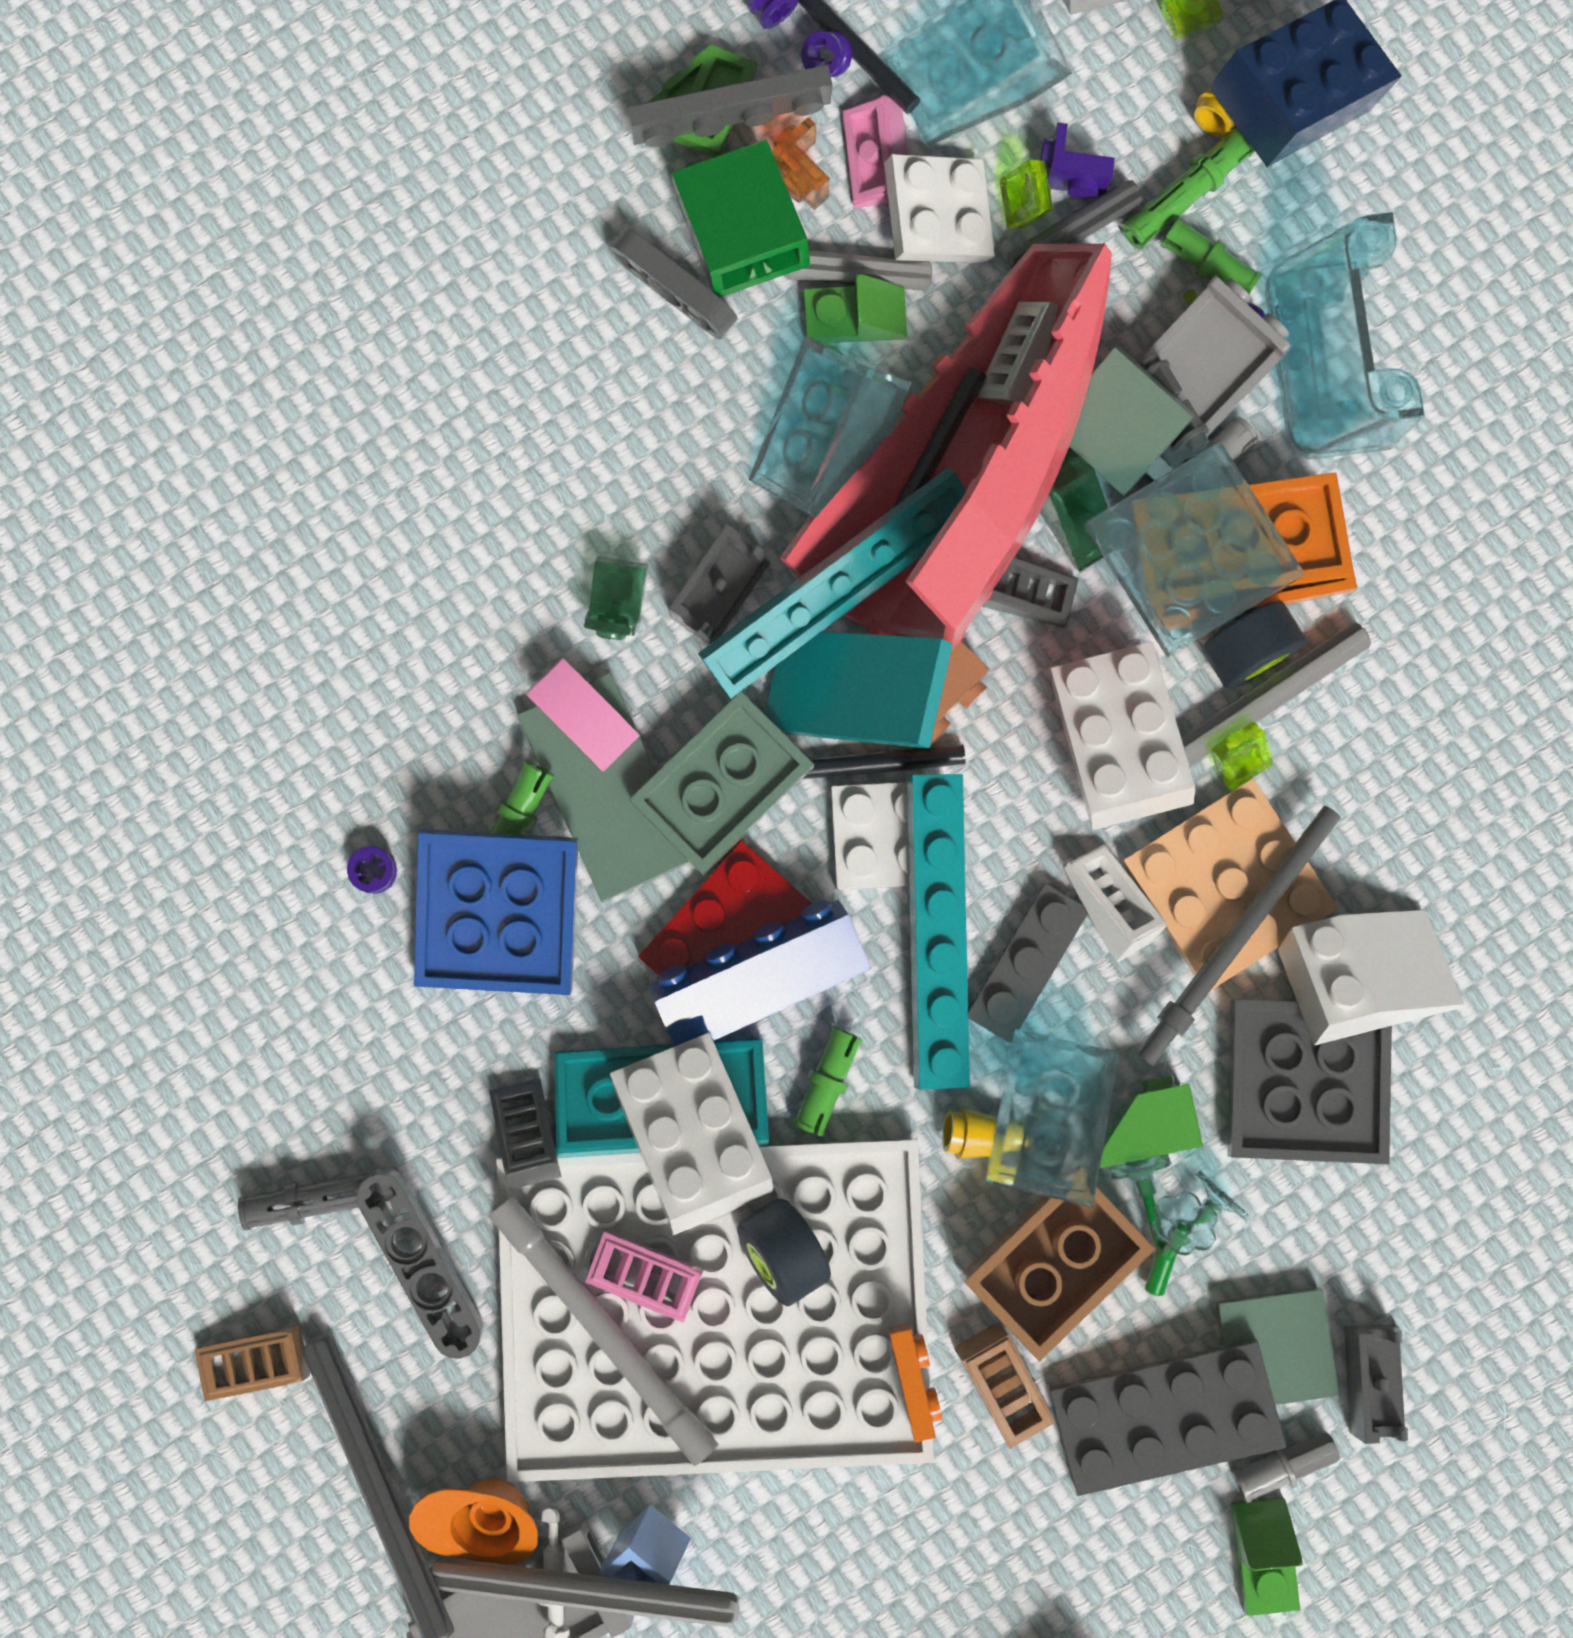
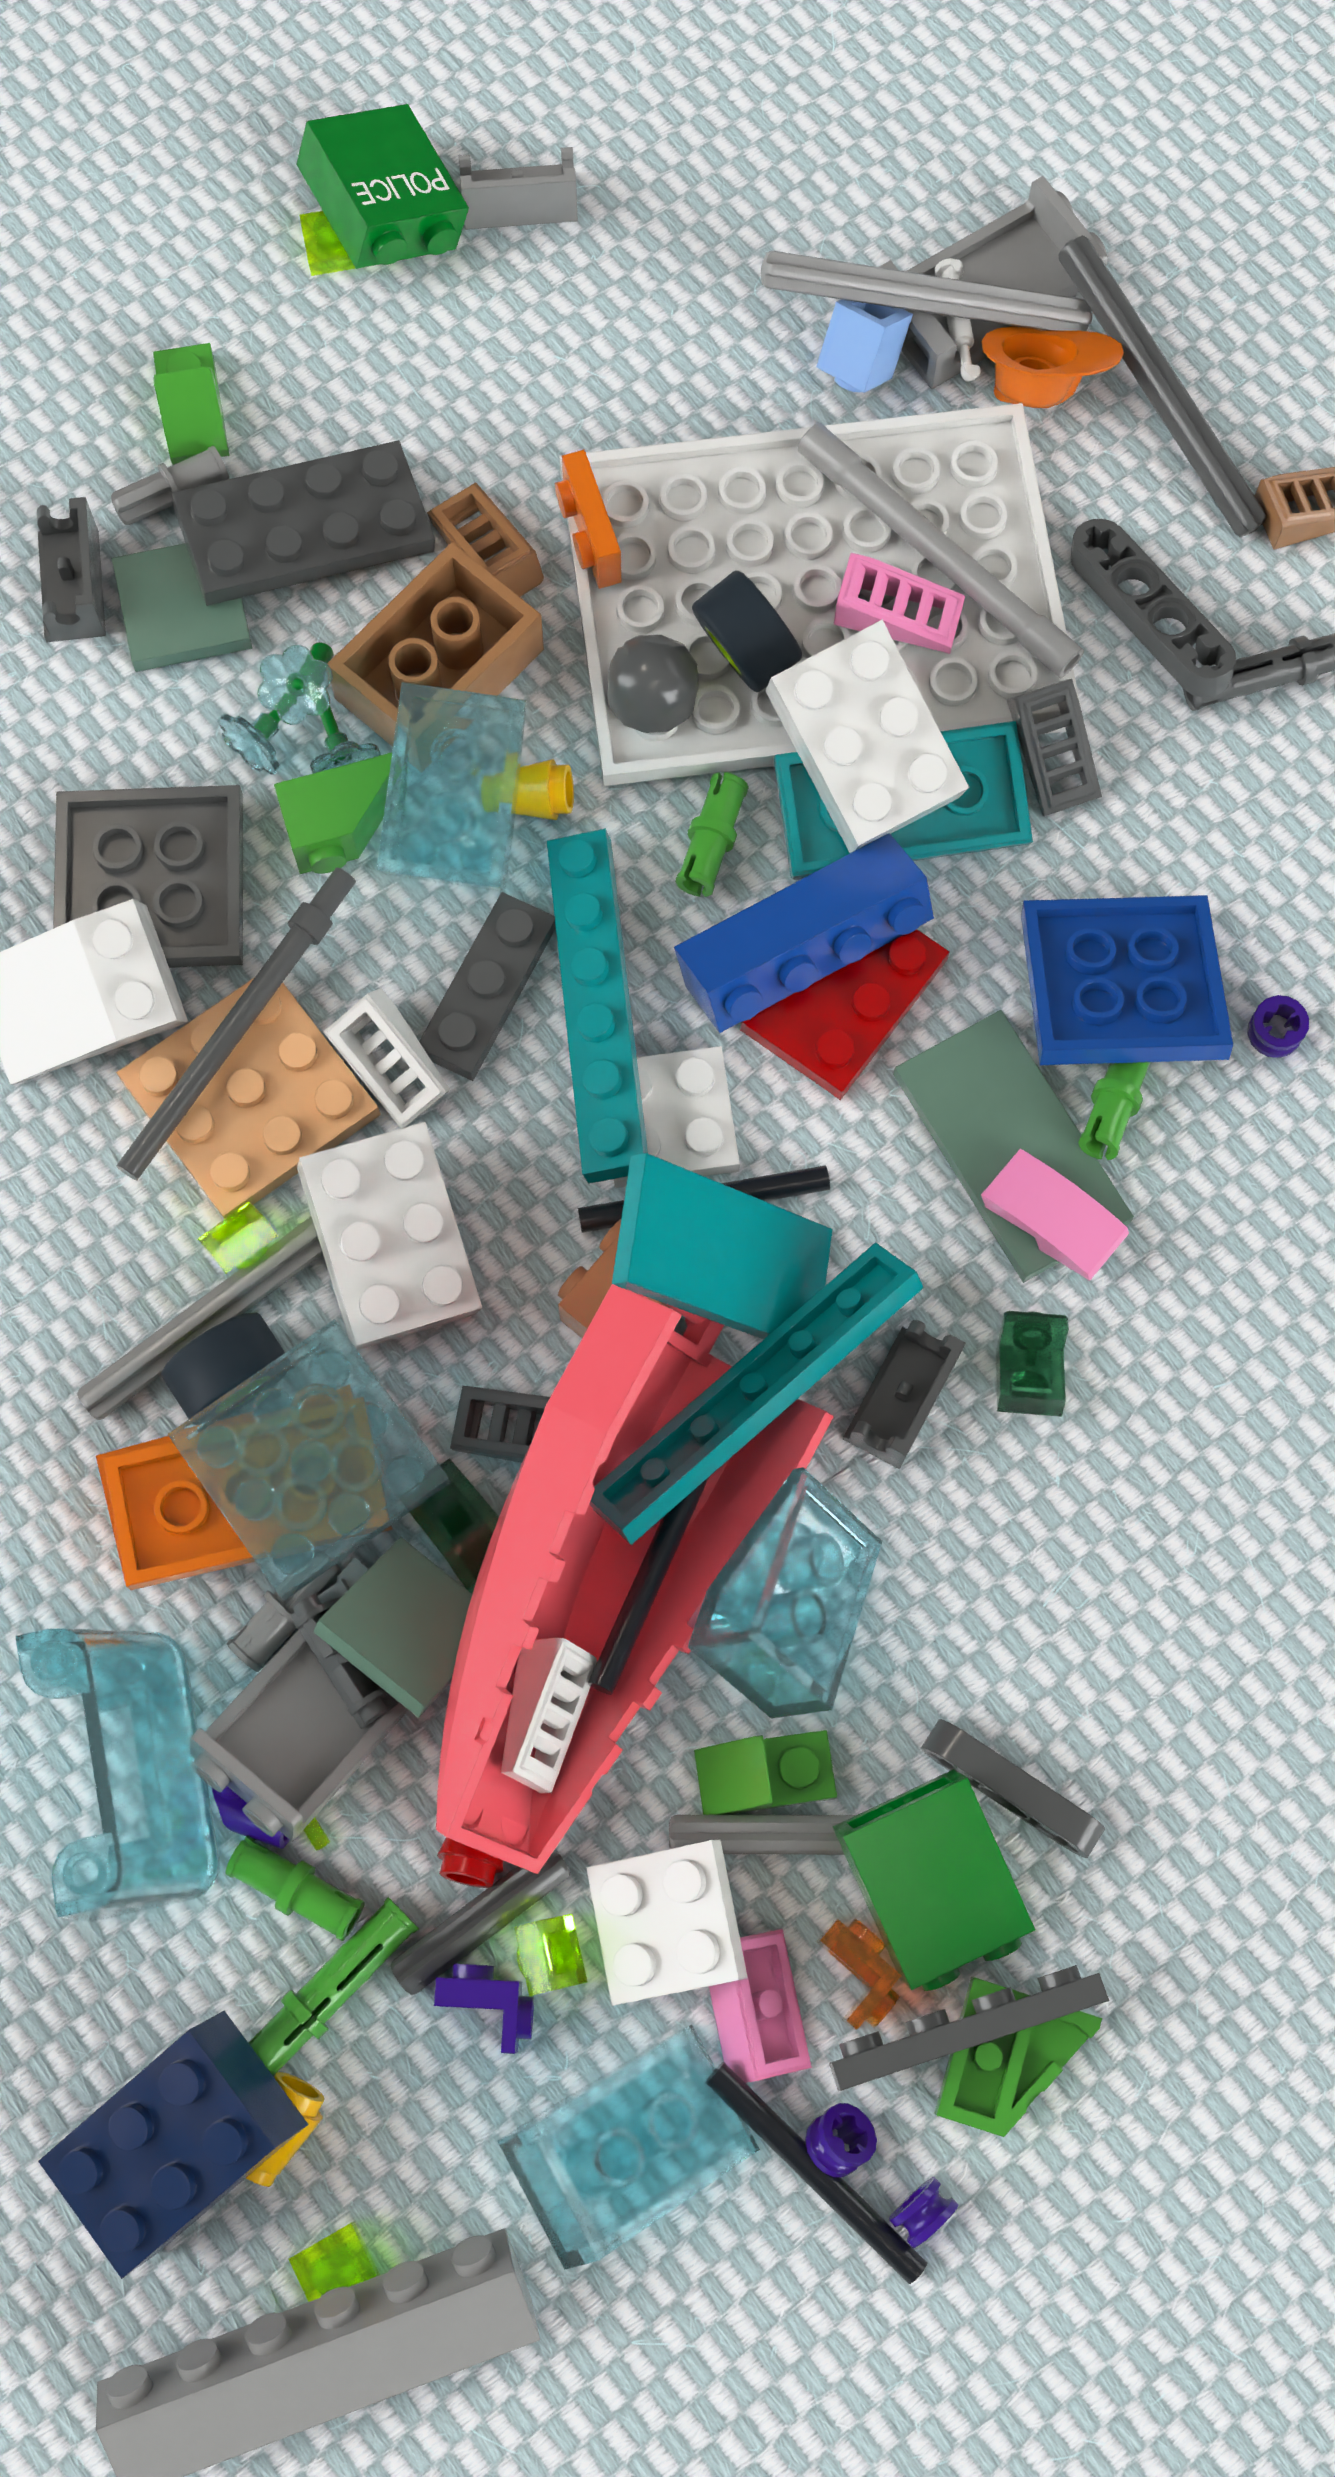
camera: 175 degrees right, 10 degrees down
(721, 783) = (874, 1146): sand green plate -> none
(868, 1218) = (652, 683): none -> dark grey hair

